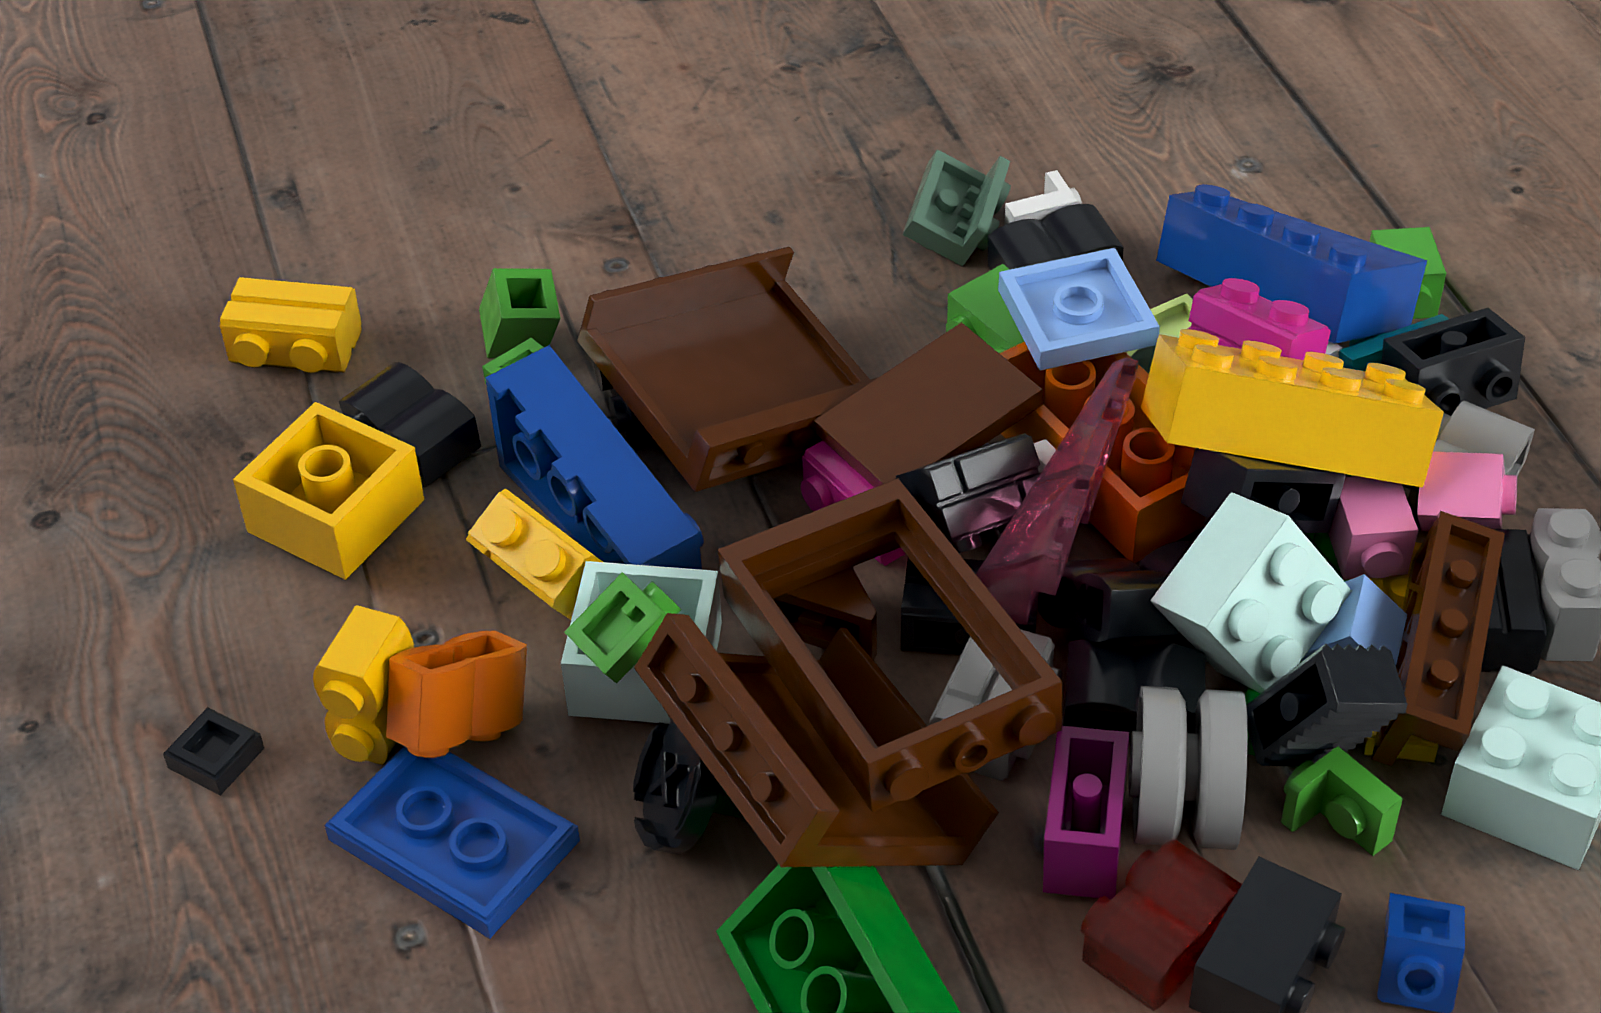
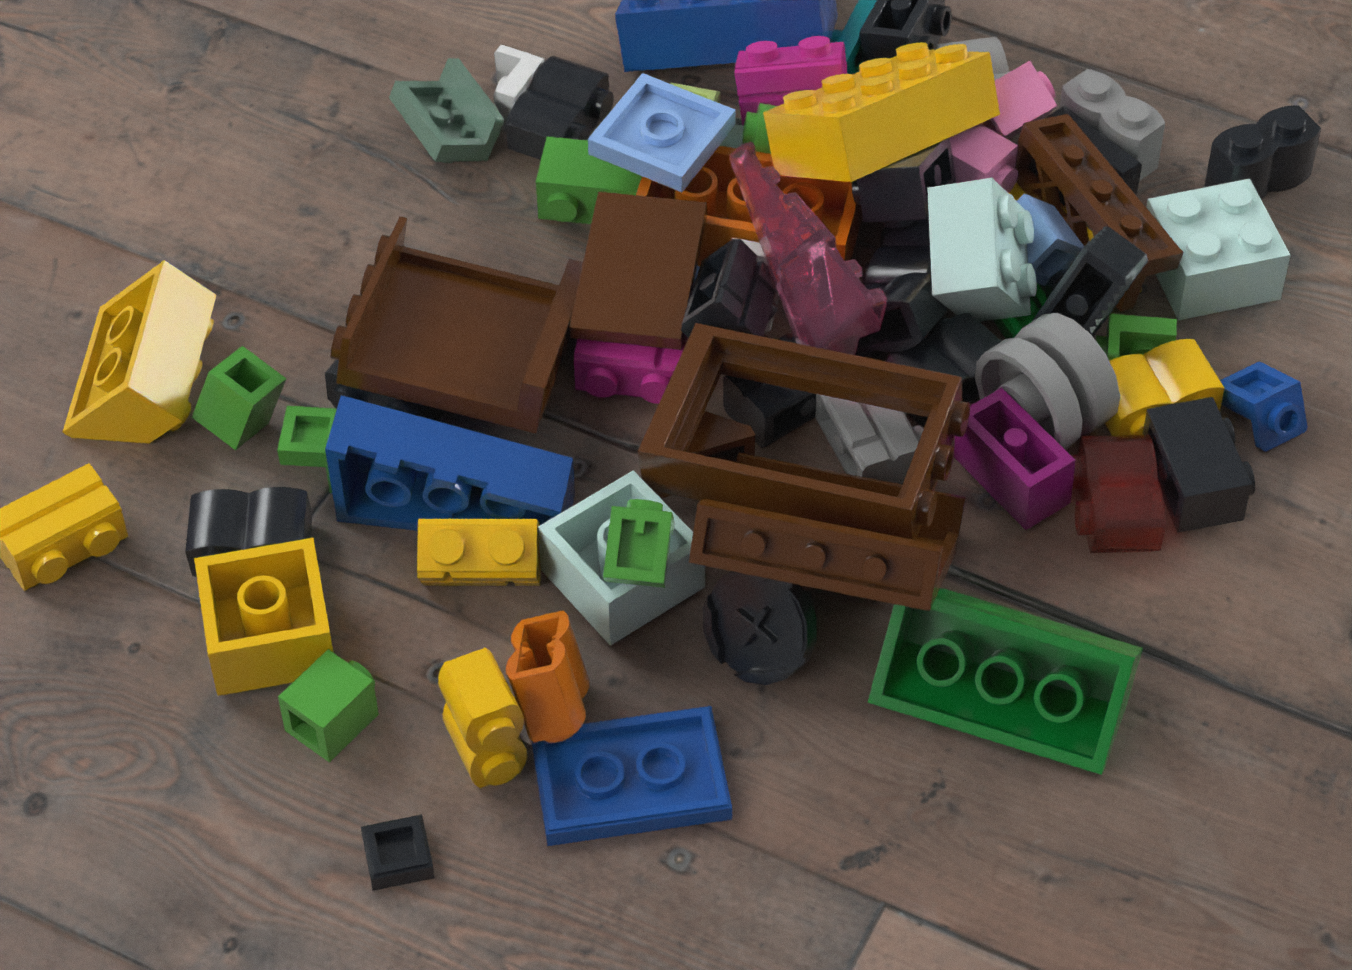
camera: 45 degrees left, 5 degrees up
(299, 594) = (329, 704): none -> bright green brick
(516, 234) = (142, 359): none -> yellow slope
(1328, 845) = (1160, 378): none -> yellow brick

